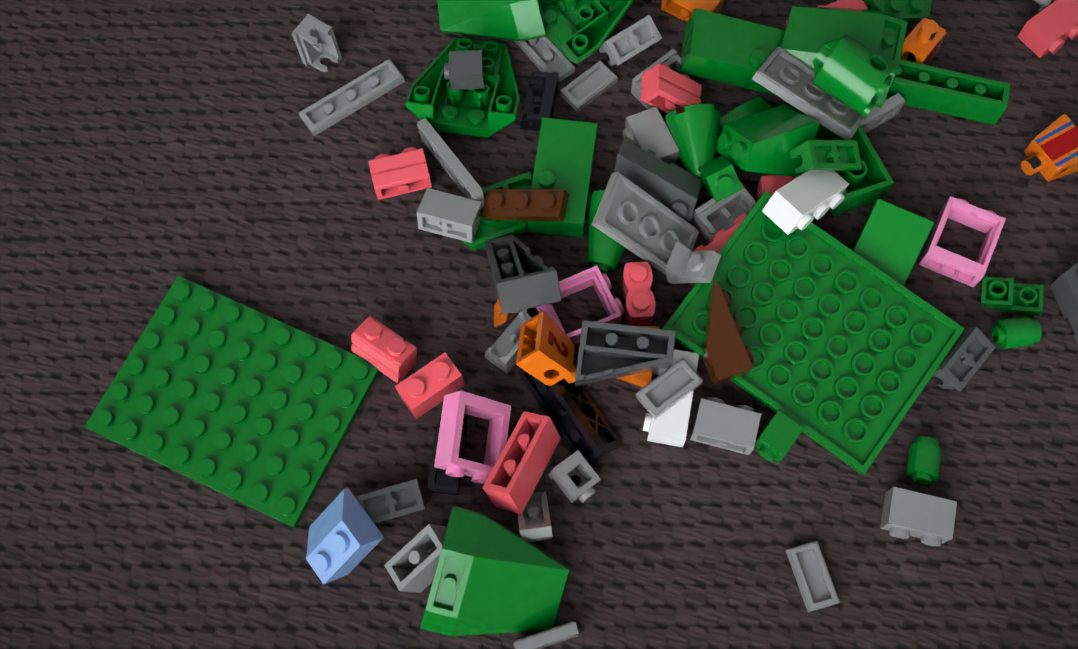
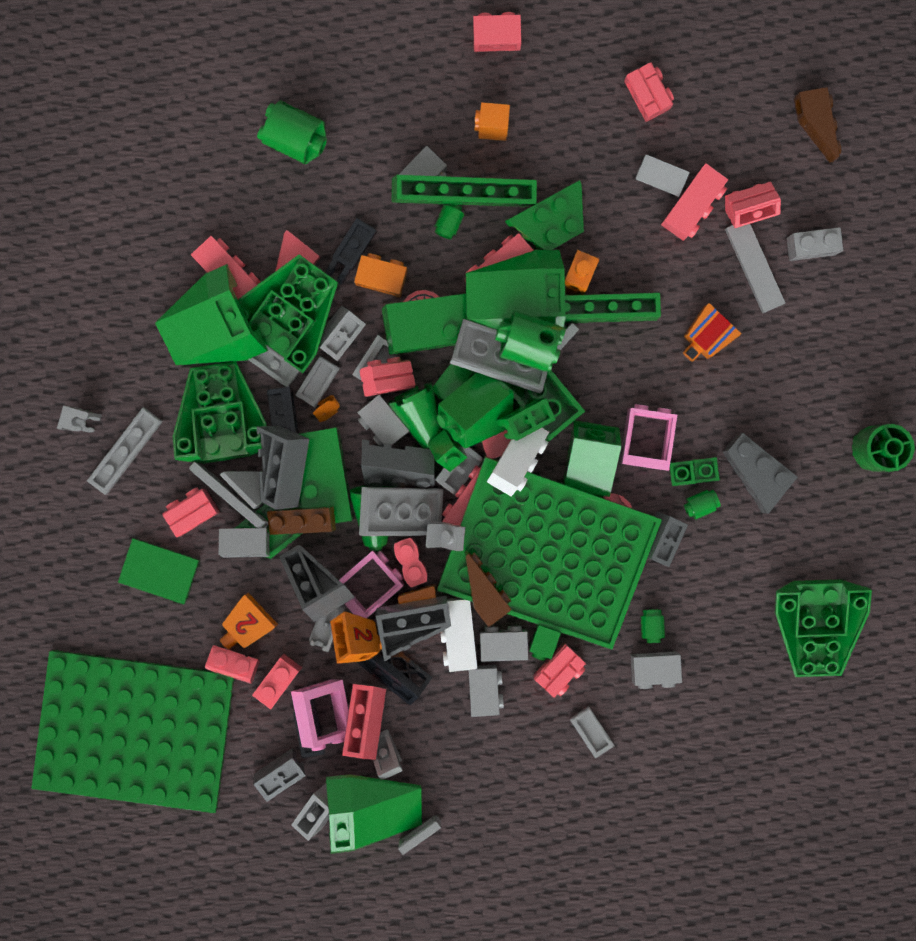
camera: 15 degrees left, 20 degrees up
(339, 228) = (158, 571): none -> green tile
(340, 538) = (252, 814): light blue slope -> none
(419, 309) = (246, 623): none -> orange torso
(465, 70) = (212, 413): dark grey brick -> none
(480, 157) = (246, 485): none -> light grey slope
(525, 136) = (283, 466): none -> dark grey wedge
(575, 467) = (415, 717): light grey brick -> none
(593, 109) = (327, 408): none -> orange piece
(669, 388) = (454, 637): light grey tile -> none
(685, 476) = (484, 691): none -> light grey brick
(790, 478) = (560, 670): none -> coral brick

